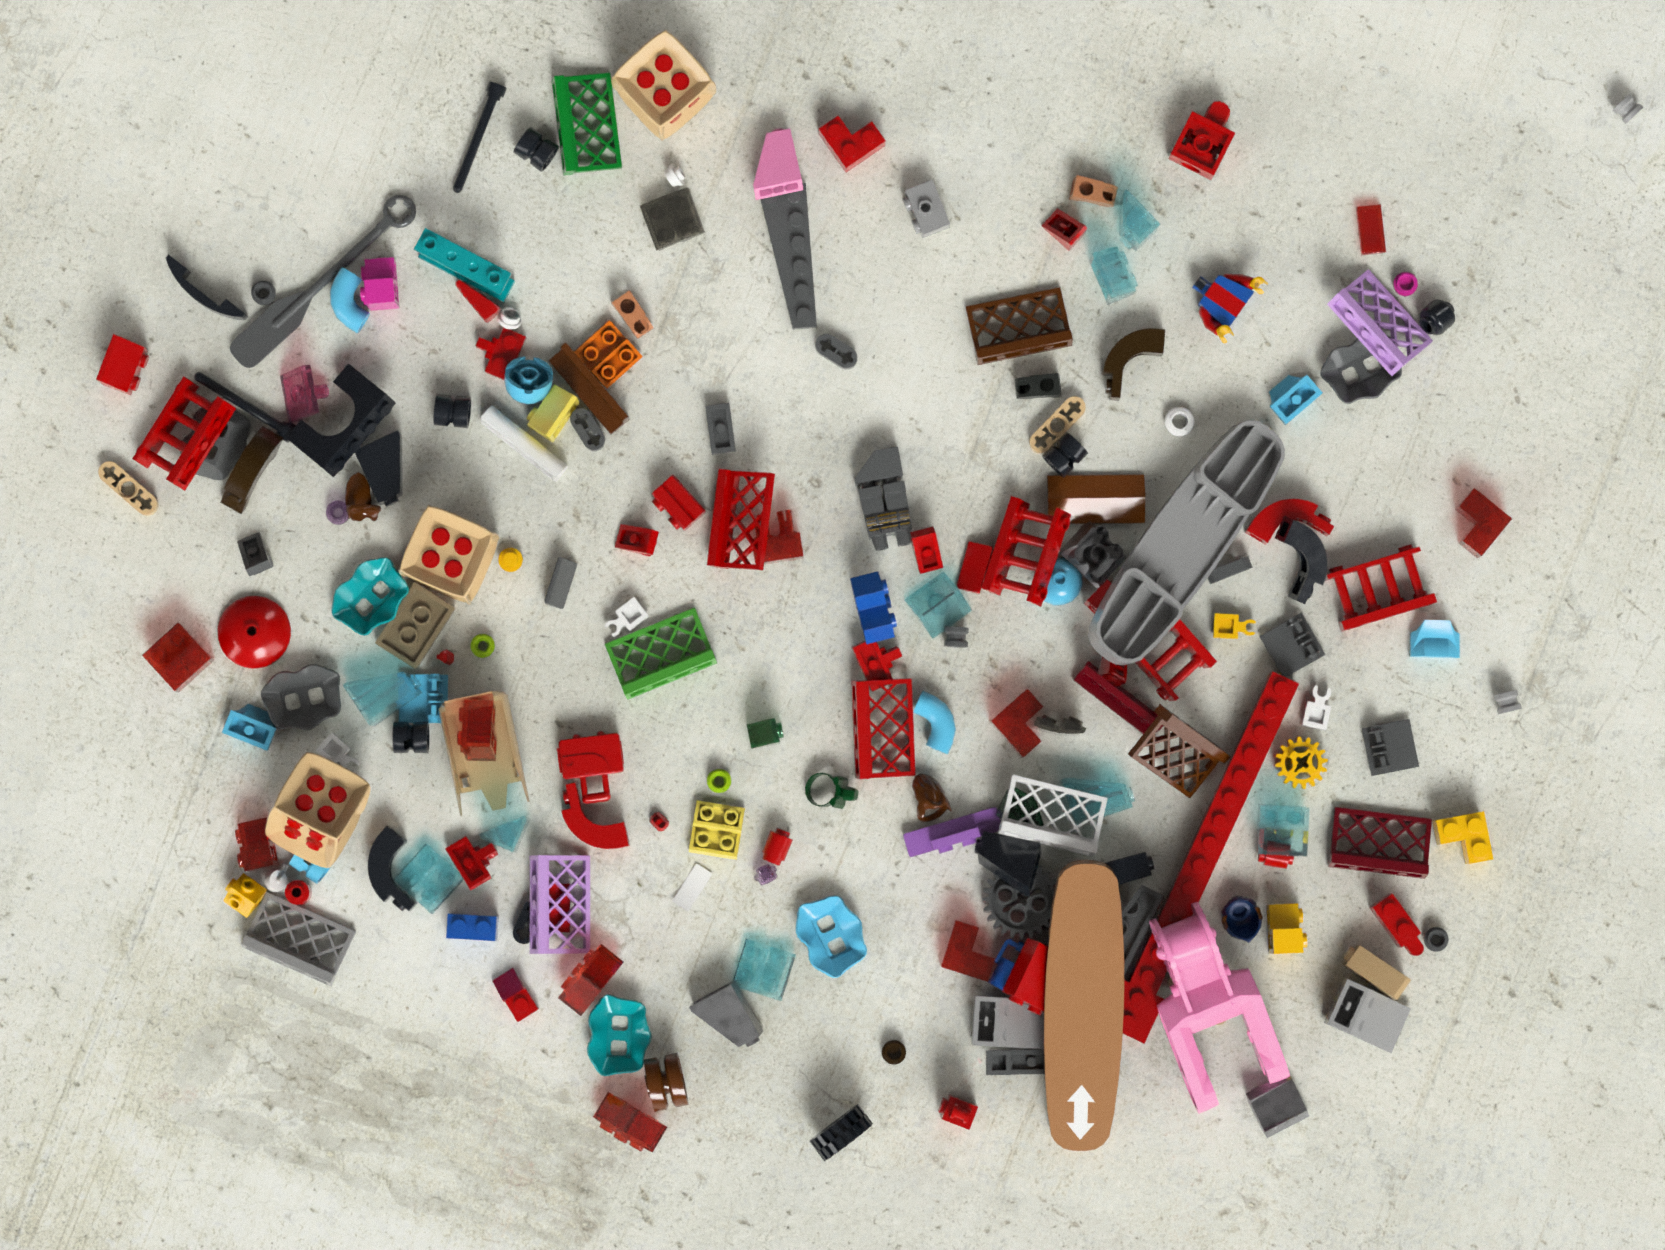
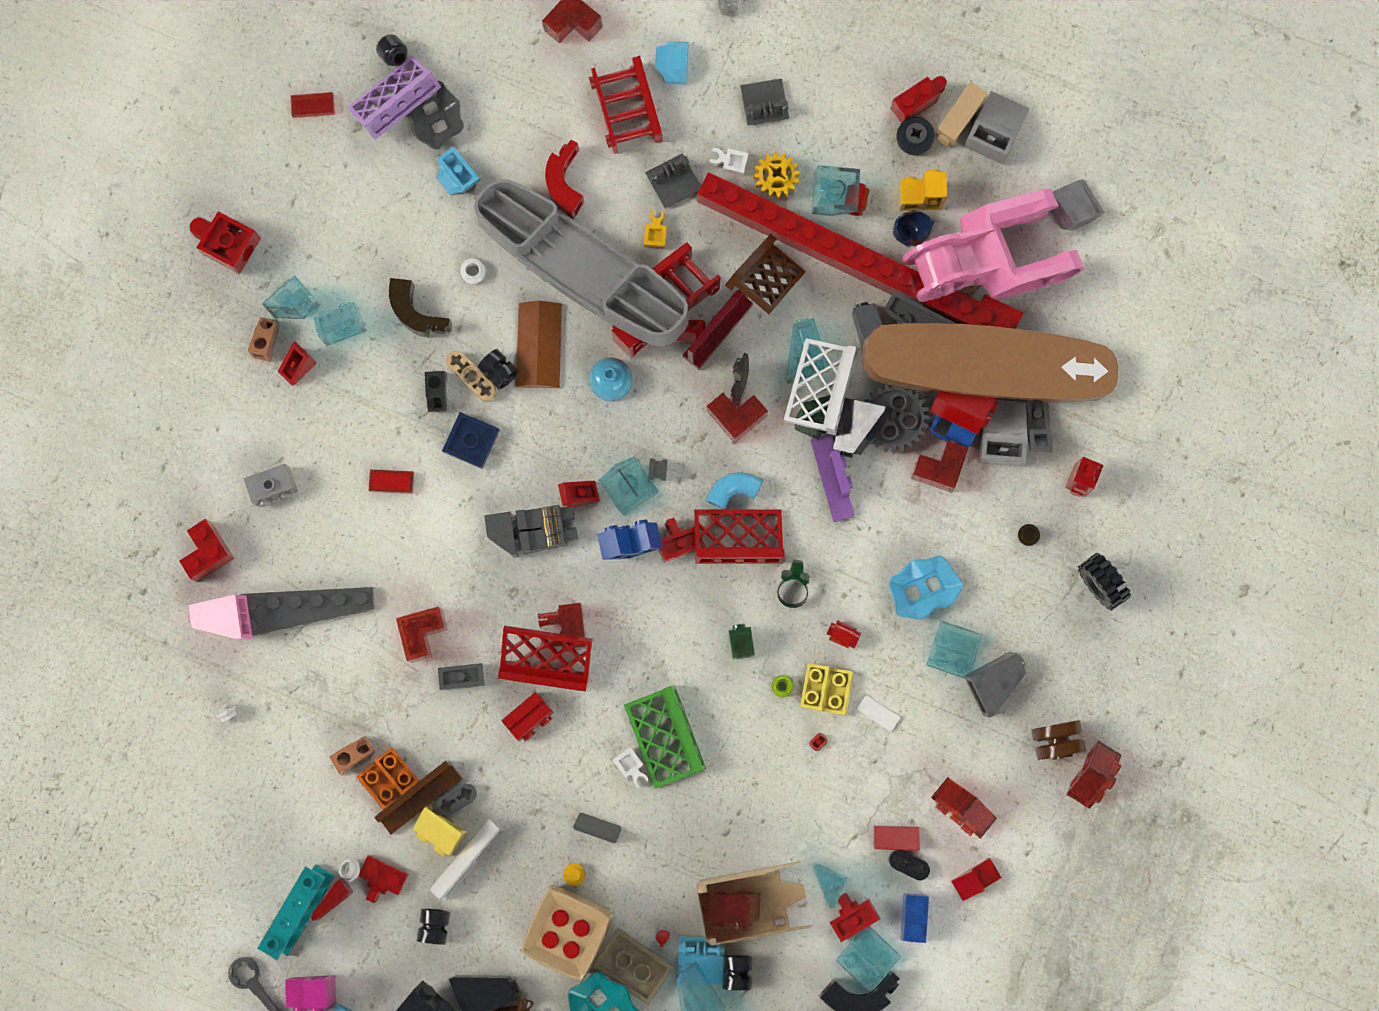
camera: 80 degrees left, 5 degrees down
(490, 645) = (645, 902): lime plate -> none
(494, 94) = (138, 879): black piece -> none
(528, 380) = (407, 853): medium azure cylinder -> none
(539, 151) = (190, 845): black wheel -> none
(540, 904) = (894, 853): lavender fence -> none
(566, 129) = (172, 813): green fence -> none
(591, 757) = (759, 803): red piece -> none
(599, 836) = (831, 799): red arch -> none
(636, 539) = (560, 755): red slope -> none
(637, 1035) = (1013, 767): teal piece -> none
(663, 85) = (138, 719): tan piece -> none
(672, 219) = (266, 716): clear smoke slope -> none
(766, 874) = (868, 645): clear purple plate -> none
(767, 375) = (415, 629): none -> clear red brick
(840, 347) = (391, 567): dark grey beam -> none
(929, 796) = (800, 496): reddish brown piece -> none
(935, 341) = (391, 481): none -> red tile
(974, 567) = (596, 452): red slope -> none
(983, 427) = (471, 440): none -> dark blue plate
(1006, 543) = (568, 418): red fence -> none
(1019, 346) = (397, 399): reddish brown fence -> none
(1093, 553) = (586, 347): flat silver slope -> none
(1225, 300) = (367, 227): torso -> none
(1229, 570) = (605, 229): dark grey beam -> none
(1311, 557) = (594, 160): black arch -> none
(1346, 926) = (913, 143): none -> black wheel
(1384, 863) = (865, 109): dark red fence -> none
(1405, 284) = (361, 77): dark pink plate -> none
(1443, 939) = (931, 63): dark grey plate -> none
(1471, 831) = (839, 36): yellow brick -> none

